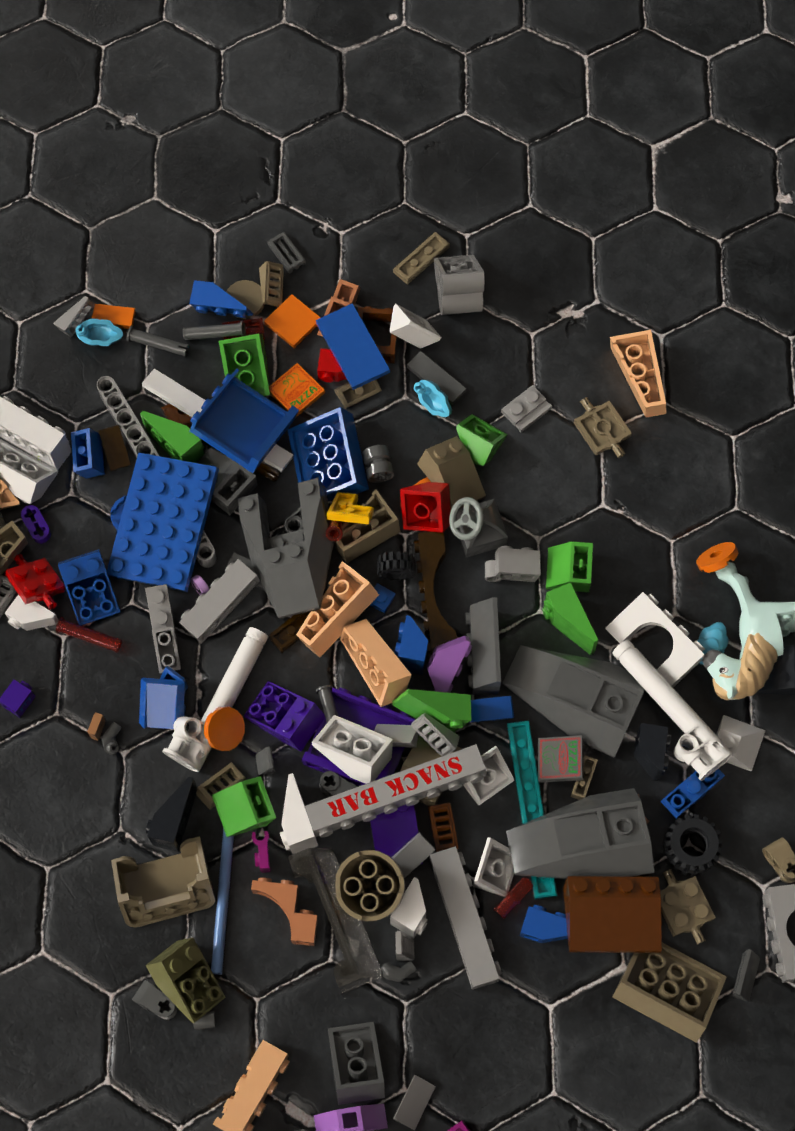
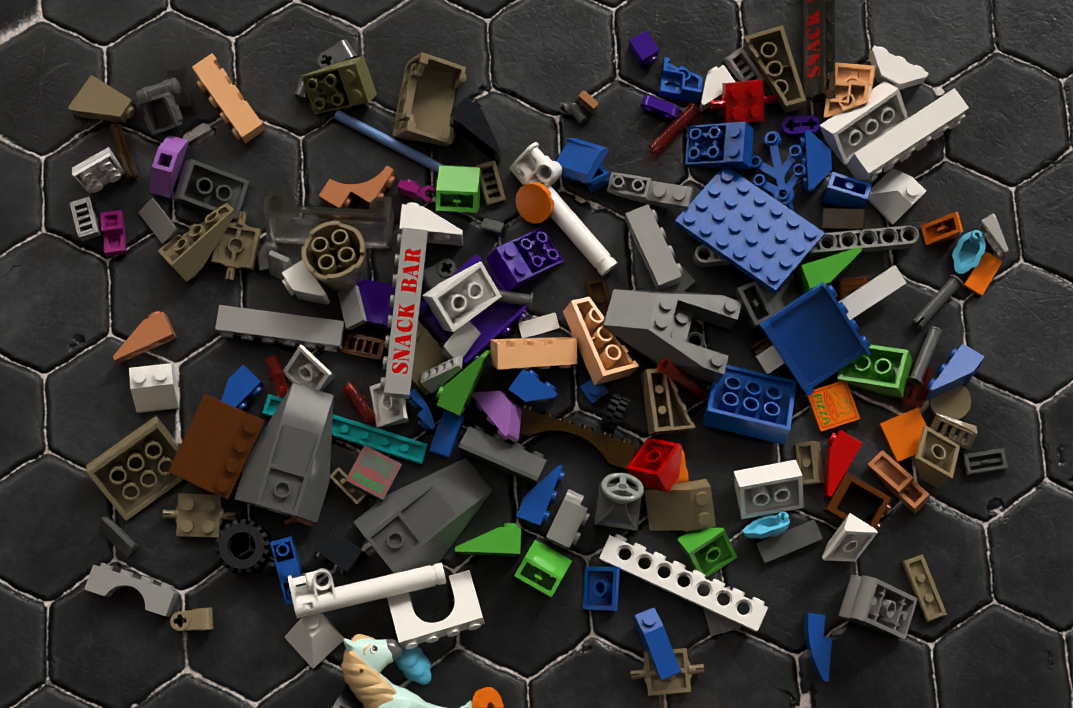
camera: 110 degrees right, 10 degrees up
(38, 651) = (679, 83): none -> blue slope
(69, 494) = (816, 161): none -> blue slope
(70, 411) = (895, 194): none -> white slope
(72, 657) = (659, 107): none -> dark purple beam
(86, 361) = (942, 229): none -> orange slope
(91, 522) = (779, 170): none -> blue plant
(199, 584) = (677, 238): lavender tile -> none
(304, 285) = (936, 457): none -> dark tan slope
(342, 675) = (538, 325): none -> white sticker
(345, 509) = (683, 387): yellow tile -> none
(352, 346) = (850, 472): blue tile -> none
(377, 460) = (722, 444): dark grey wheel -> none
(398, 410) = (769, 489): none -> white slope
(402, 1005) = (237, 247): none -> dark tan plate
(422, 1046) = (191, 251): none -> dark tan wedge
(483, 735) = (426, 420): none -> blue slope
(499, 806) = (358, 402): none -> clear red pin
(511, 600) = (535, 502): none -> blue slope
(514, 318) = (818, 645): none -> blue slope
(522, 373) = (610, 556): none -> white brick
(536, 1047) = (148, 335): none -> nougat slope
(559, 510) = (601, 588): none -> blue slope
(584, 442) = (656, 643): none -> blue slope
(585, 1014) = (154, 387): none -> white slope

